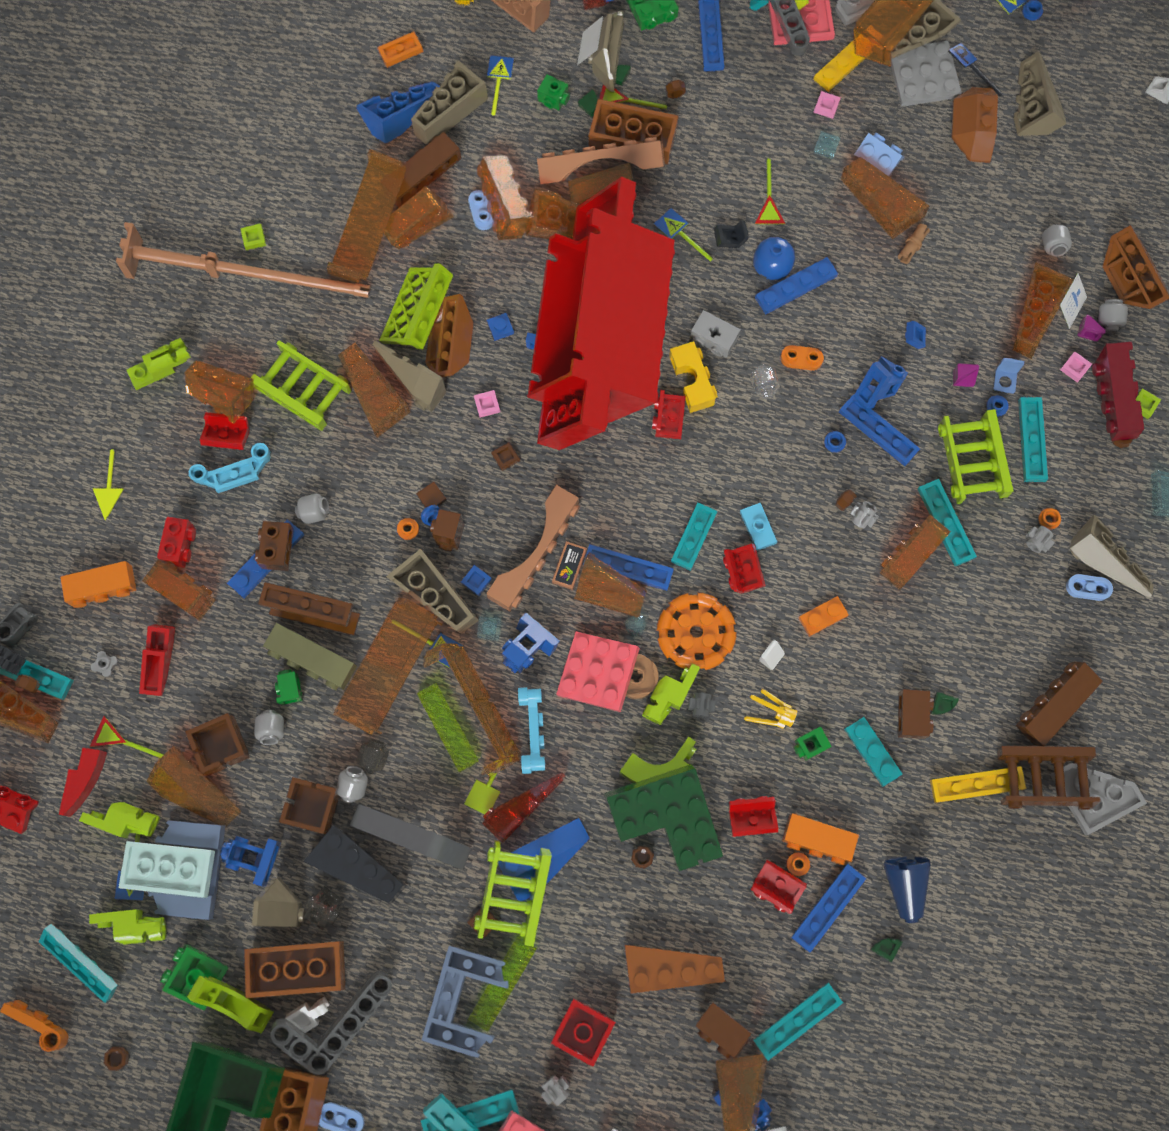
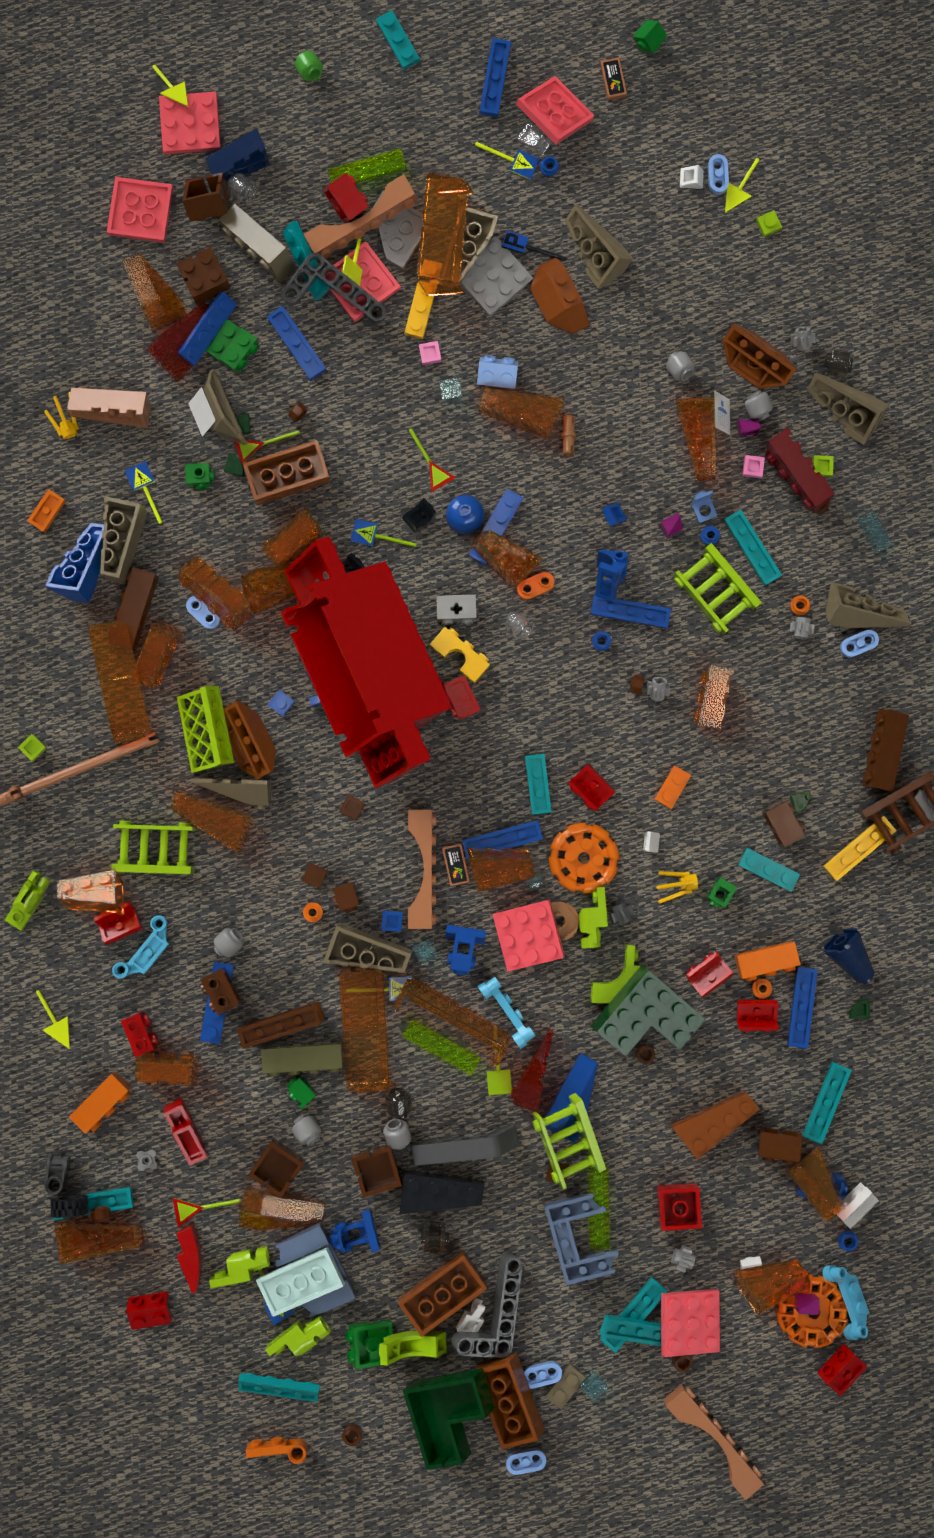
camera: 35 degrees left, 10 degrees up
(277, 906) = (404, 1259): dark tan wedge -> none
(429, 514) = (325, 891): blue plate -> none
(487, 403) = (311, 774): bright pink plate -> none
(558, 168) = (308, 494): nougat arch -> none
(758, 526) = (582, 746): medium azure plate -> none
(788, 311) = (504, 557): none -> clear orange wedge
(940, 508) = (724, 655): teal plate -> none

